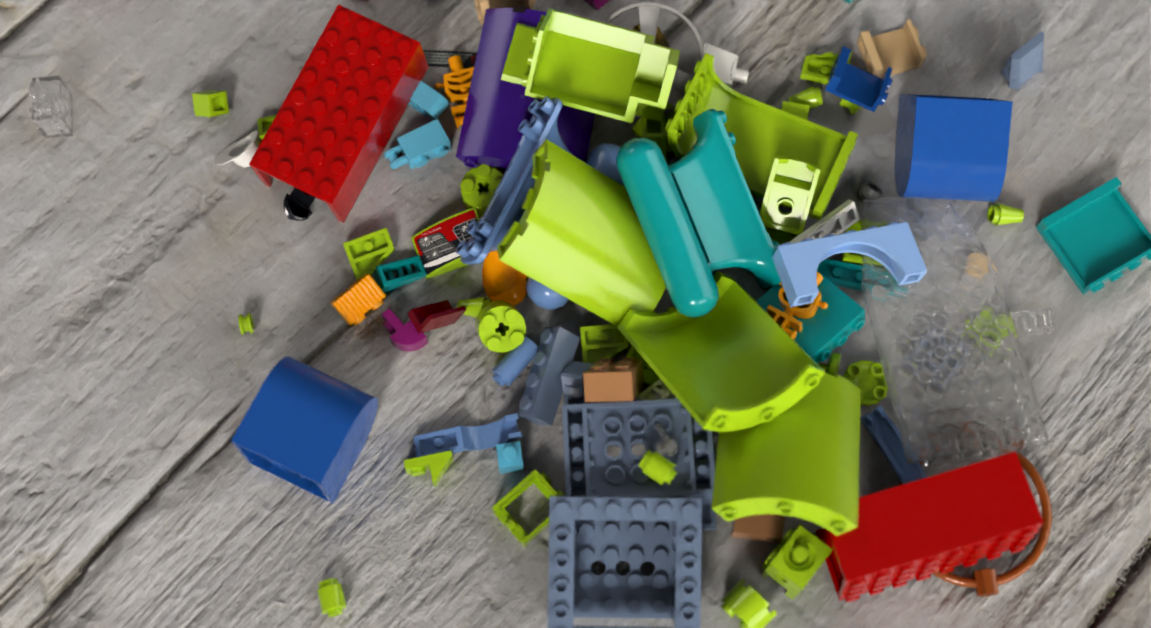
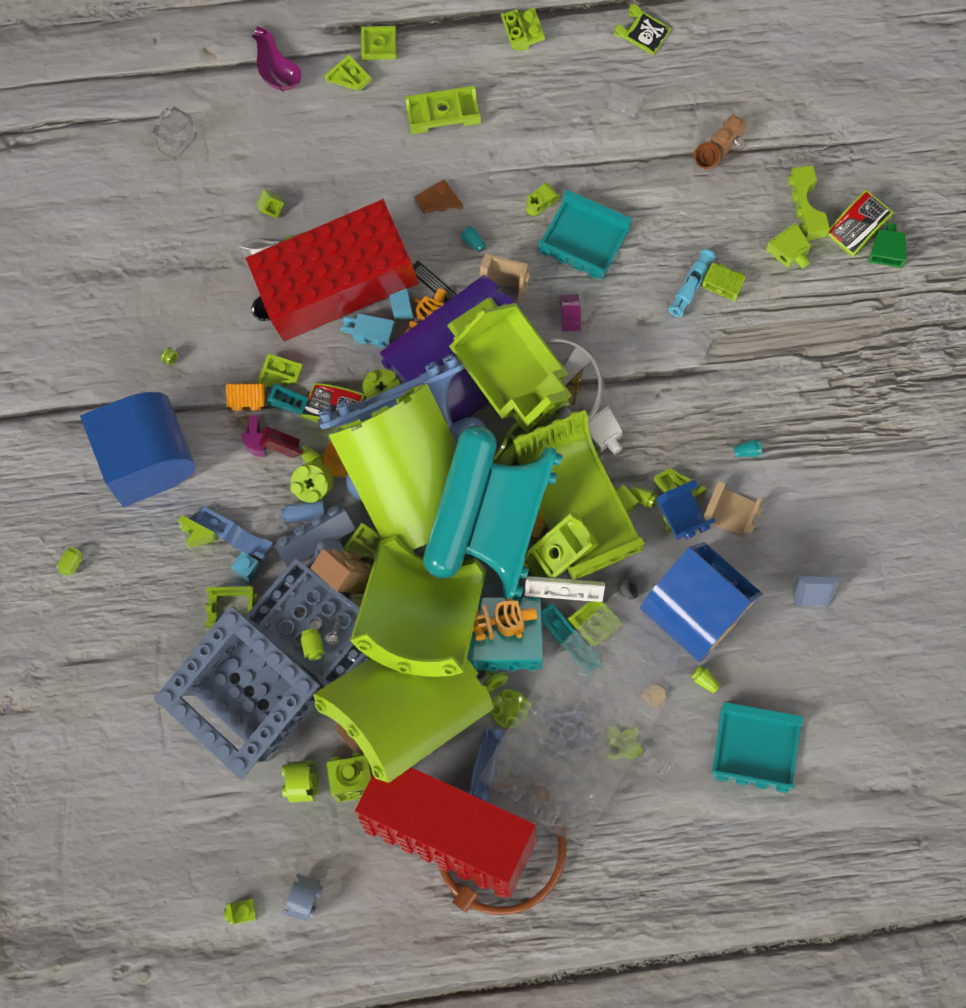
camera: 45 degrees right, 0 degrees up
(889, 245) = (599, 631): light blue arch -> none

